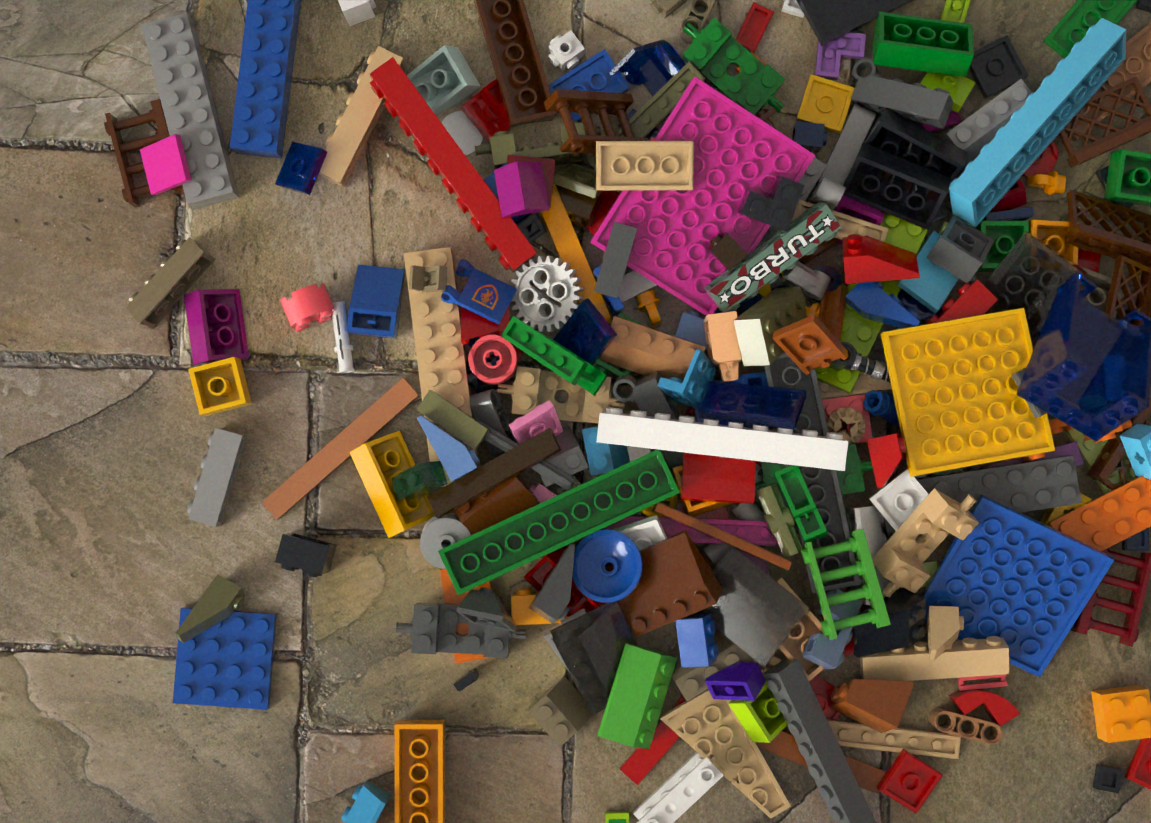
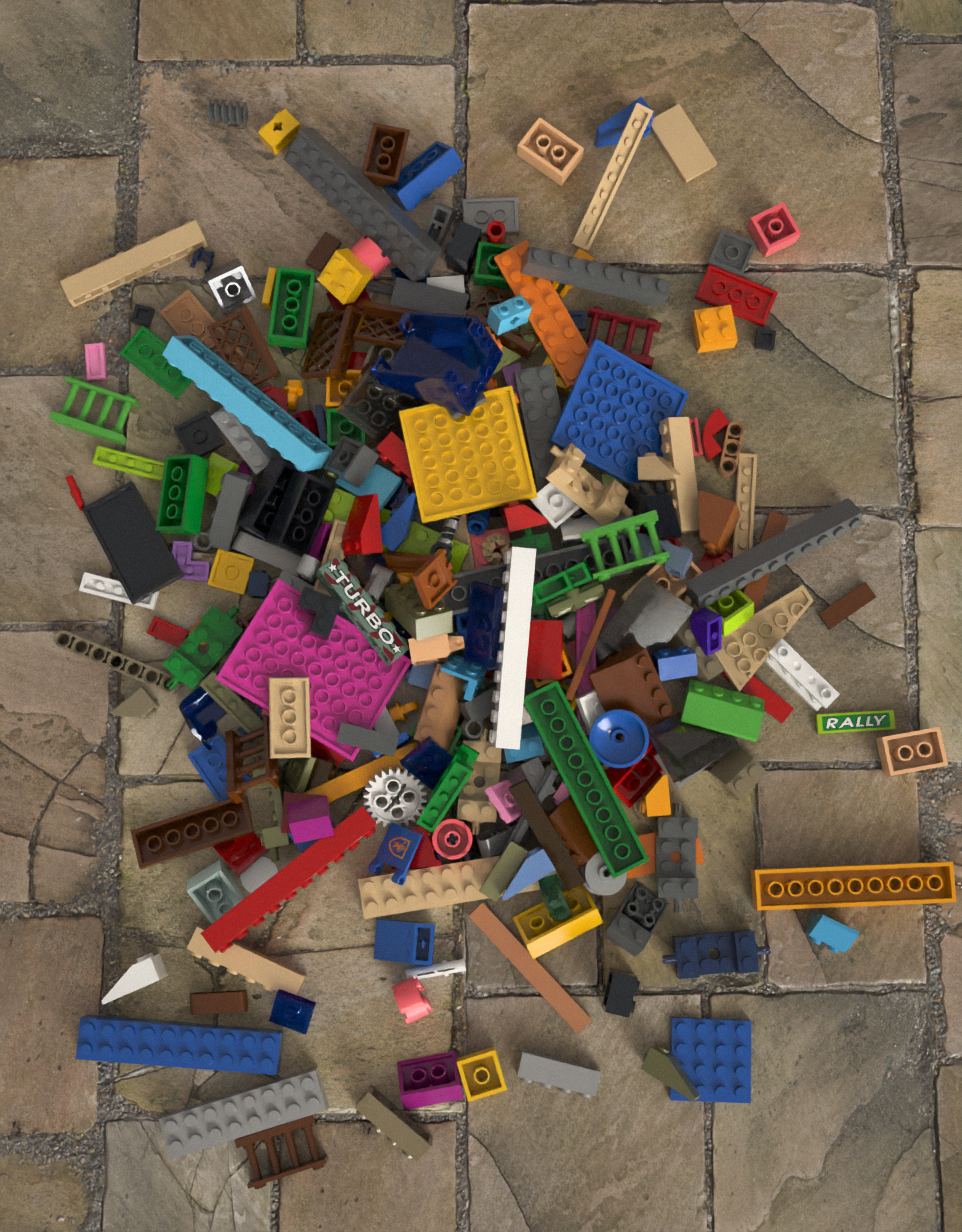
camera: 90 degrees left, 5 degrees down
(165, 164) = (292, 1131): dark pink tile -> none
(316, 83) = (218, 1002): none -> reddish brown beam
(347, 696) = (736, 953): none -> dark blue brick
(391, 577) = (636, 919): none -> dark grey slope
(428, 278) = (386, 896): dark tan bracket -> none
(466, 680) = (717, 852): black tile -> none
(486, 609) = (659, 835): dark grey slope -> none
(531, 227) = (339, 812): black tile -> none
(556, 590) = (642, 779): dark grey slope -> none
(565, 51) = (183, 785): white brick -> none
(726, 250) = (357, 648): dark brown brick -> none
(909, 781) = (776, 491): red tile -> none

